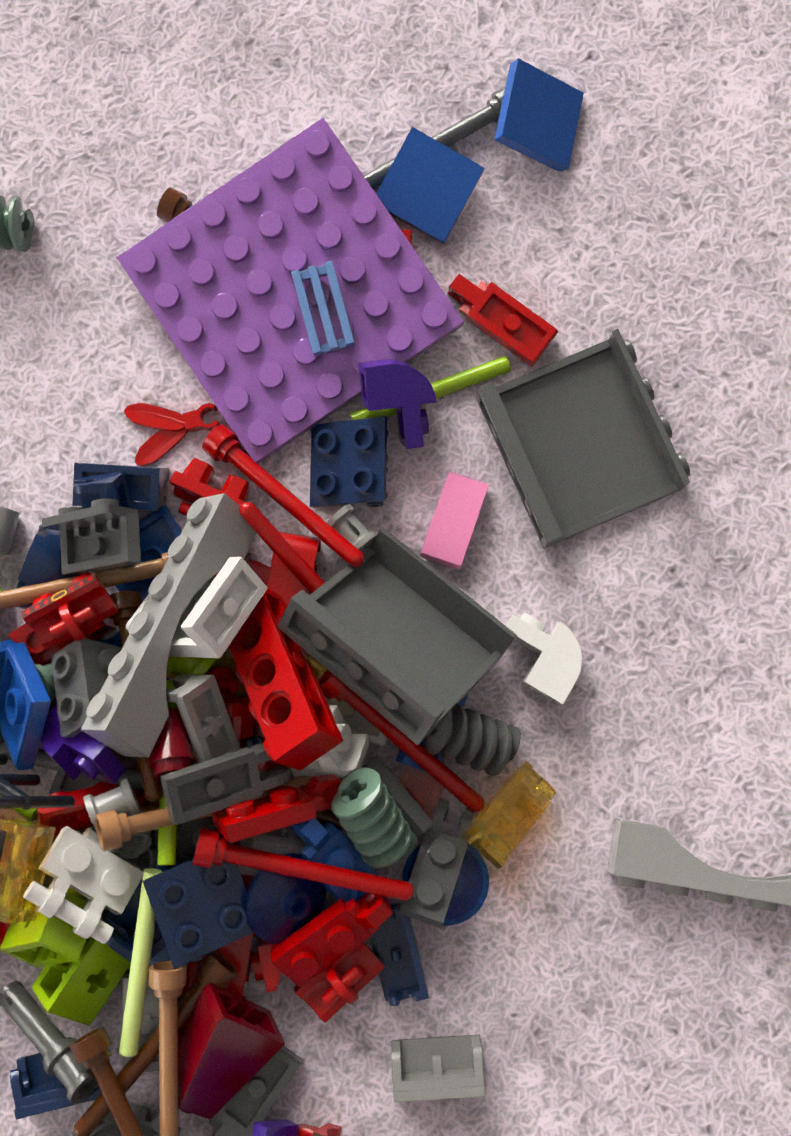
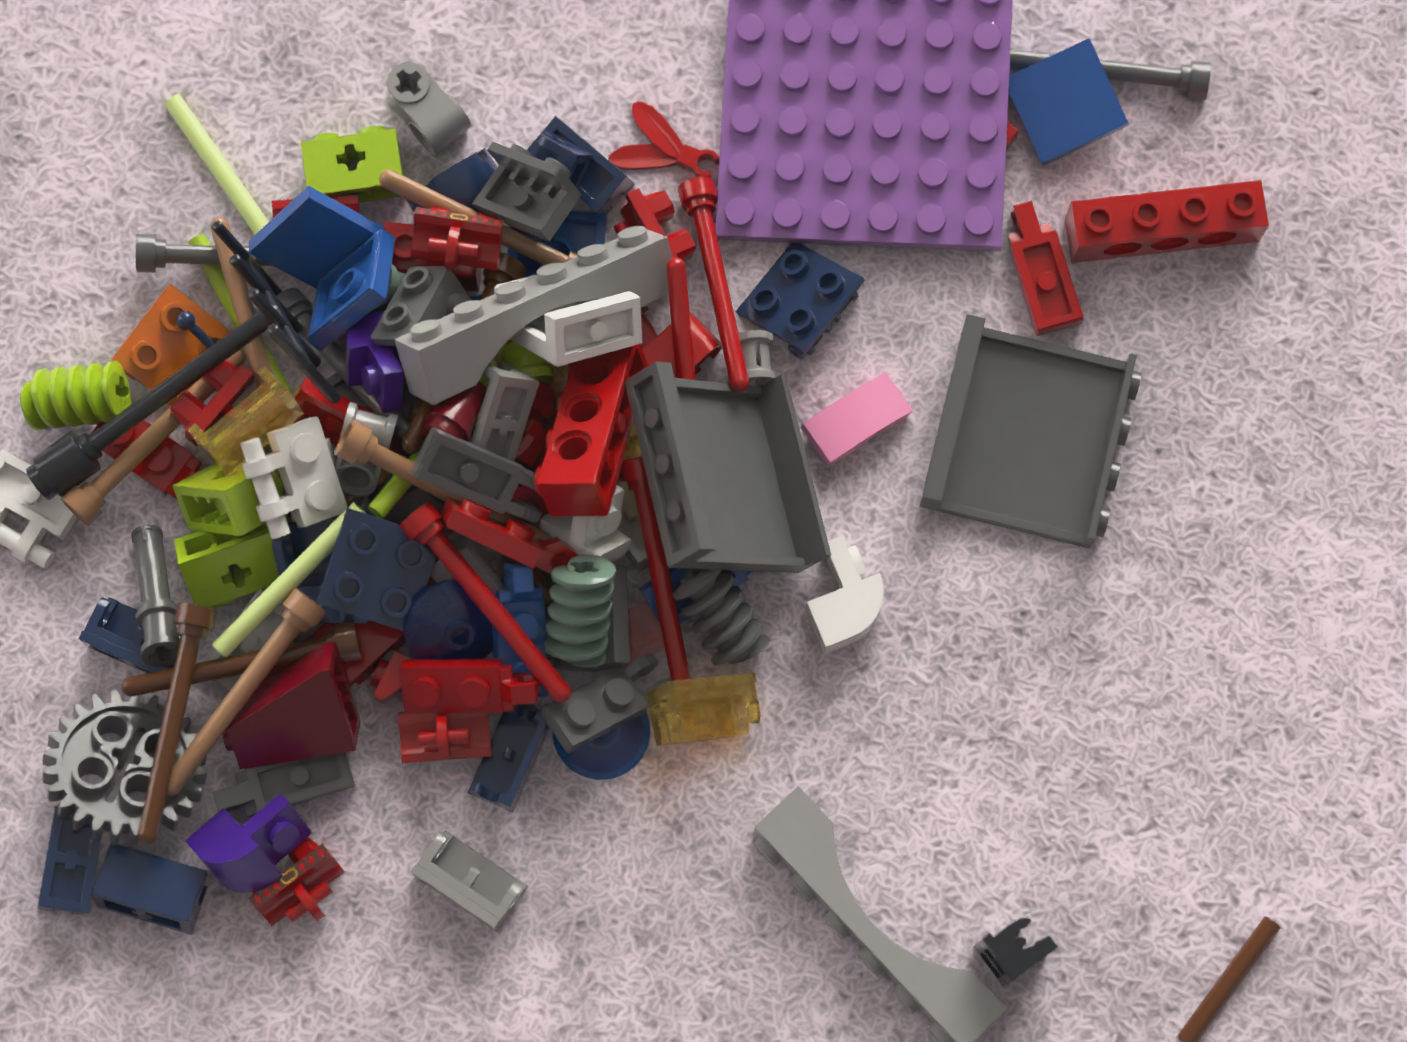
camera: 30 degrees right, 5 degrees down
(314, 274) = (895, 104): medium blue tile -> none
(398, 386) = (896, 258): dark purple brick -> none
(450, 384) = (931, 291): lime bar -> none
(539, 115) = (1218, 112): blue tile -> none
(562, 218) = (1166, 221): none -> red brick

